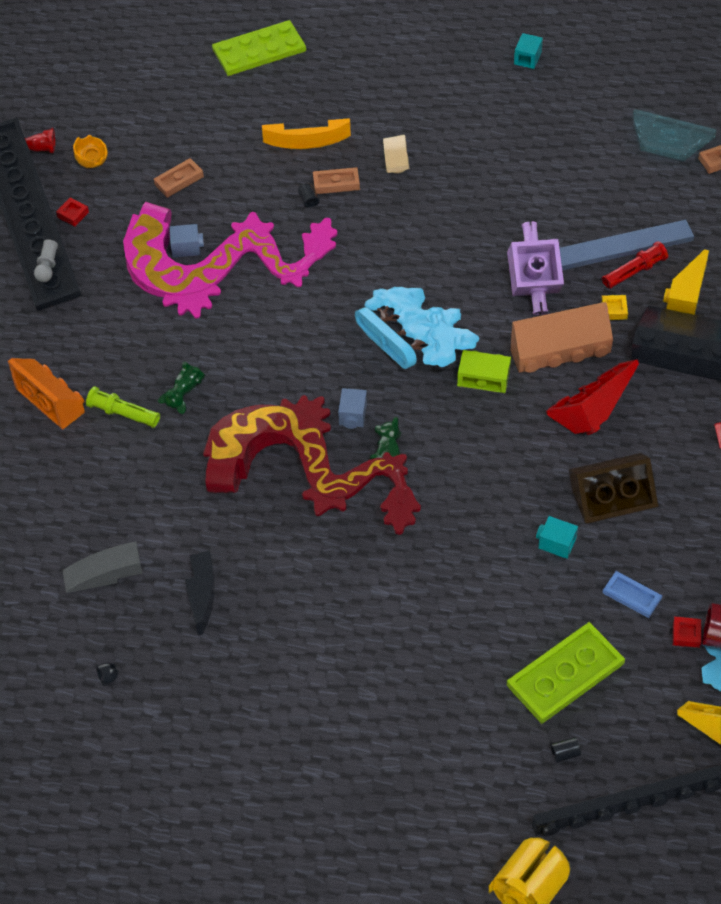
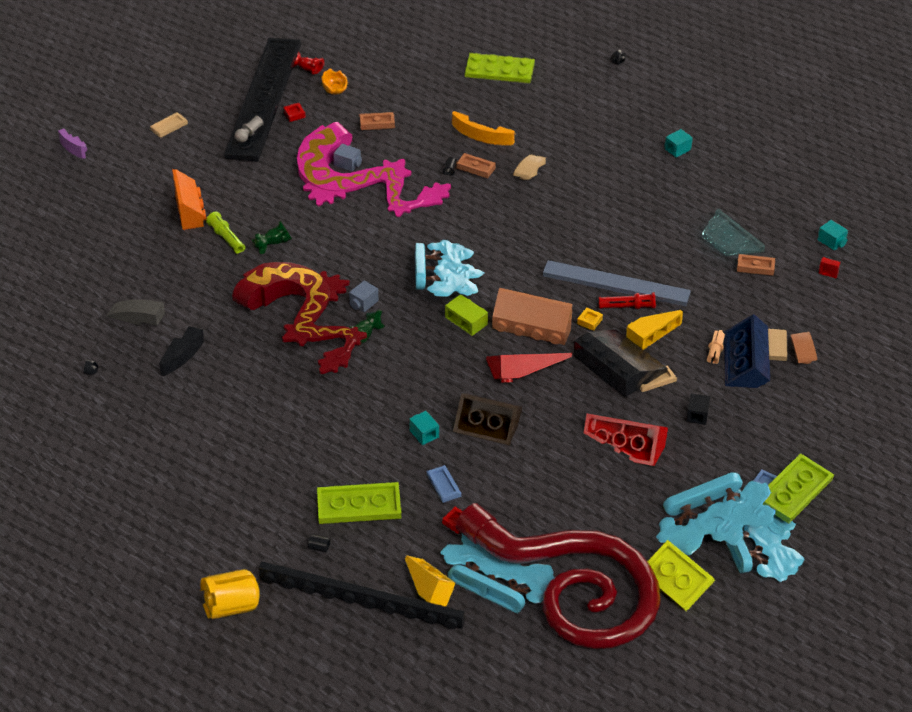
camera: 30 degrees right, 10 degrees down
(537, 281) = (553, 268): lavender brick -> none

